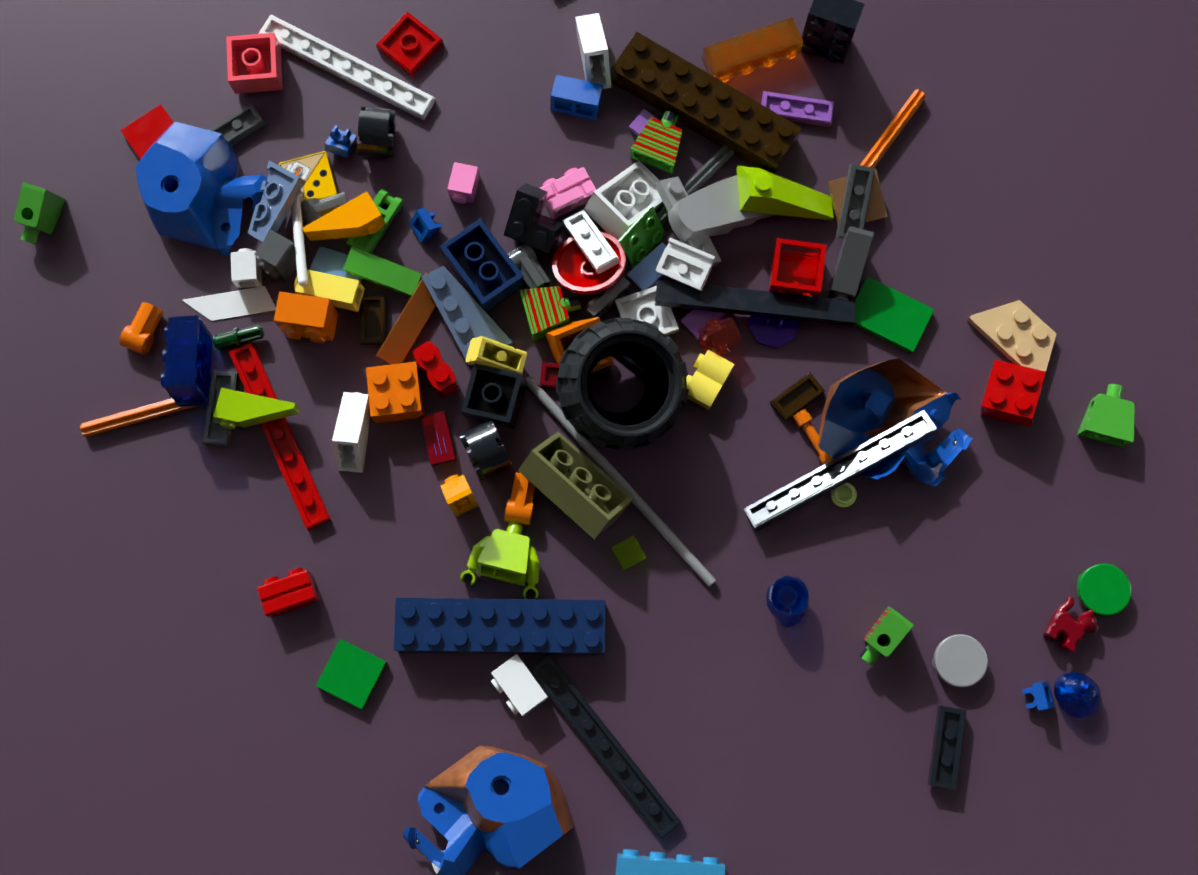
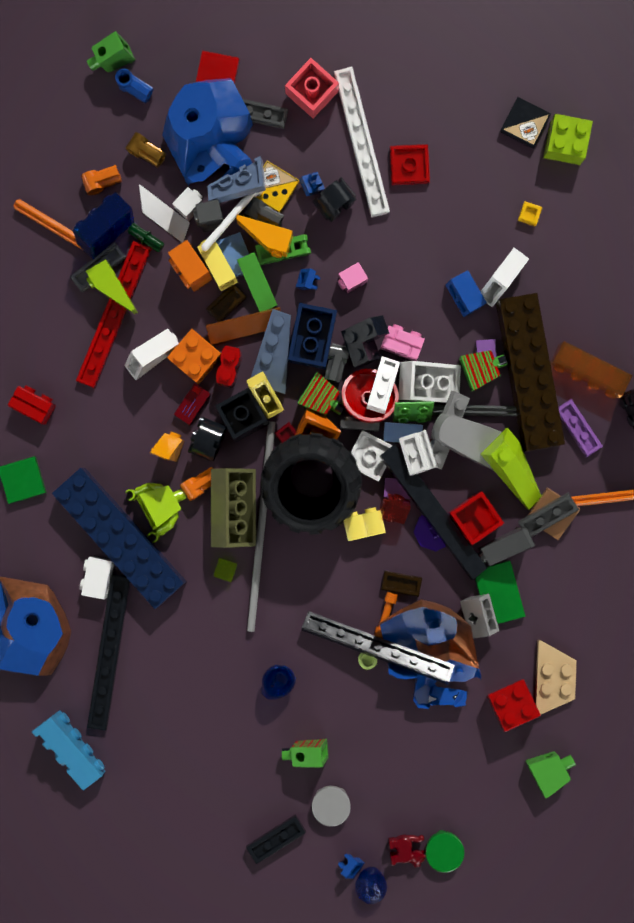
camera: 45 degrees right, 10 degrees up
(89, 219) = (134, 86): none -> blue piece
(150, 264) = (141, 147): none -> pearl gold piece
(889, 338) = (480, 615): none -> light grey brick

